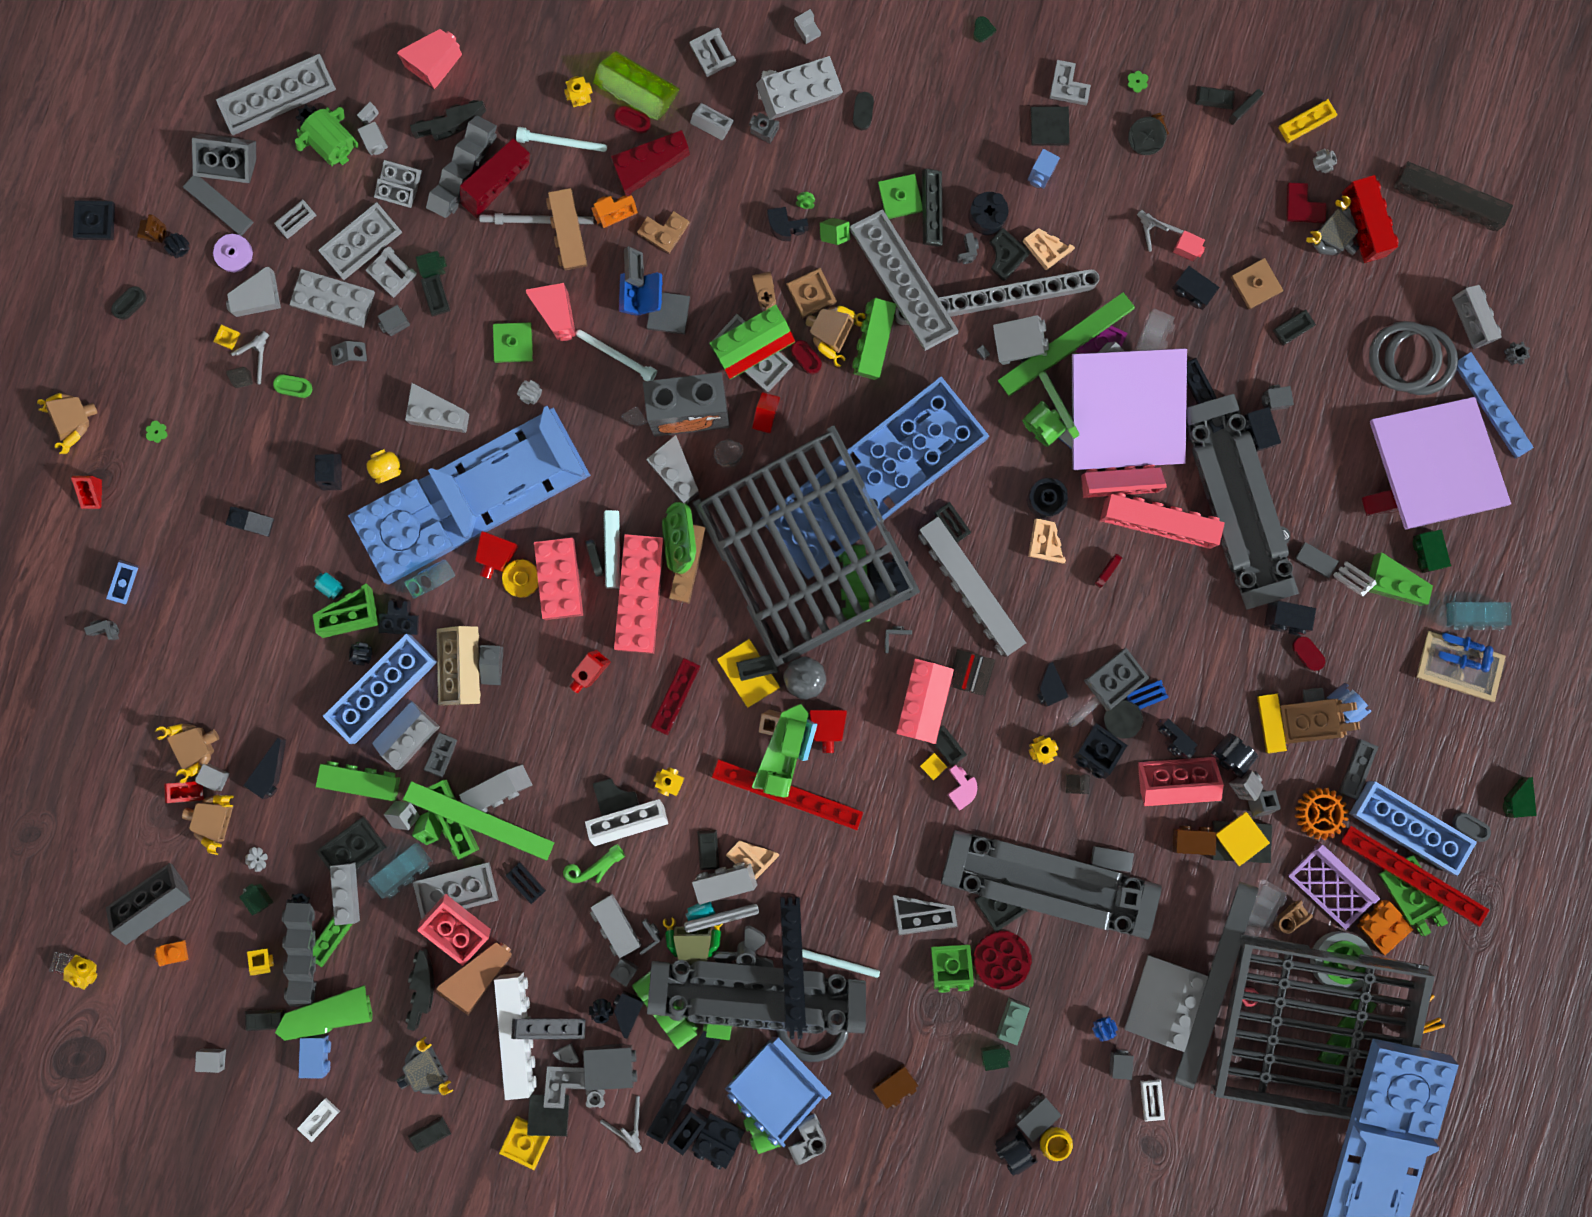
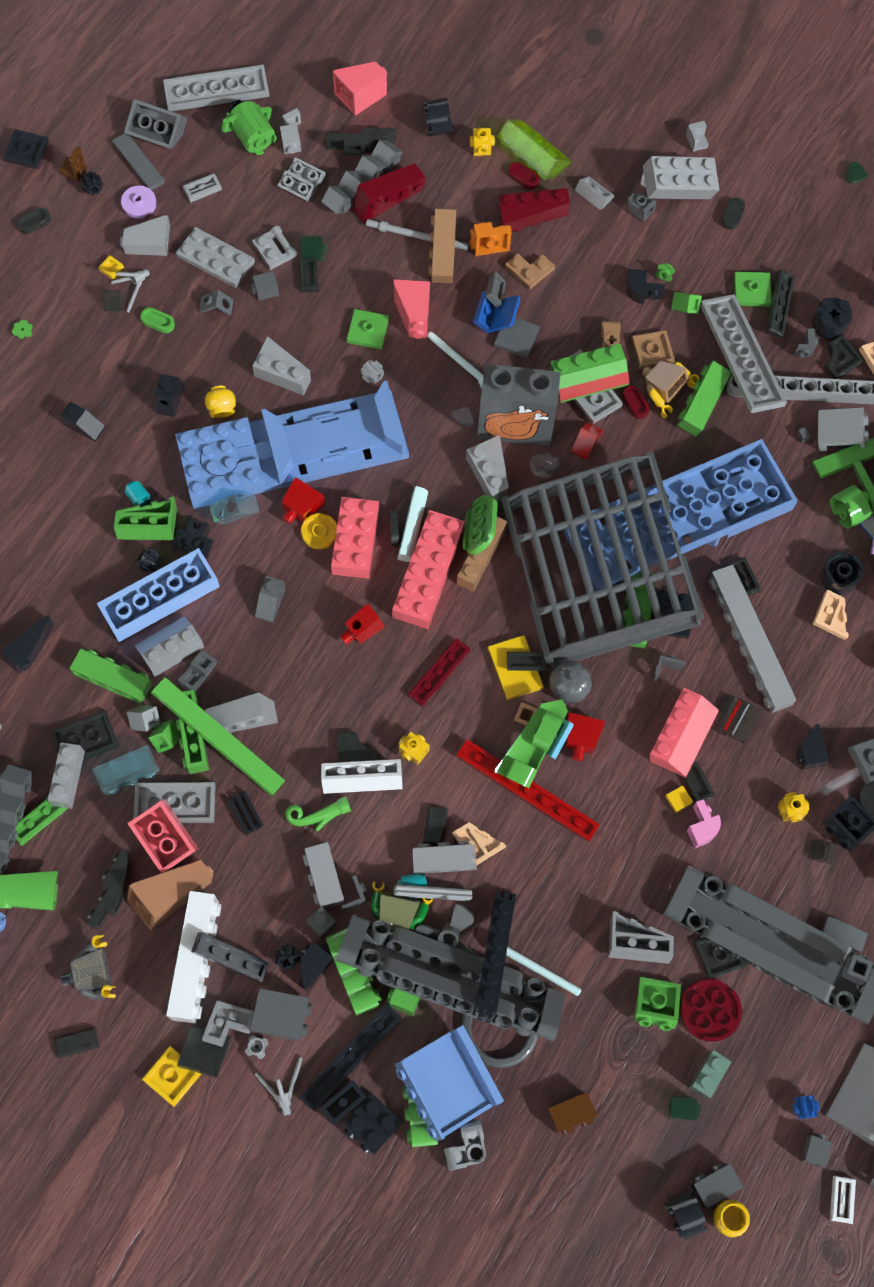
camera: 15 degrees right, 15 degrees down
(360, 241) = (254, 216): light grey plate -> none
(458, 665) = (238, 593): tan slope -> none
(524, 74) = (438, 117): none -> black brick
(525, 135) = (425, 166): light aqua piece -> none
(567, 1054) = (240, 994): light grey tile -> none
(707, 55) = (603, 140): light grey plate -> none

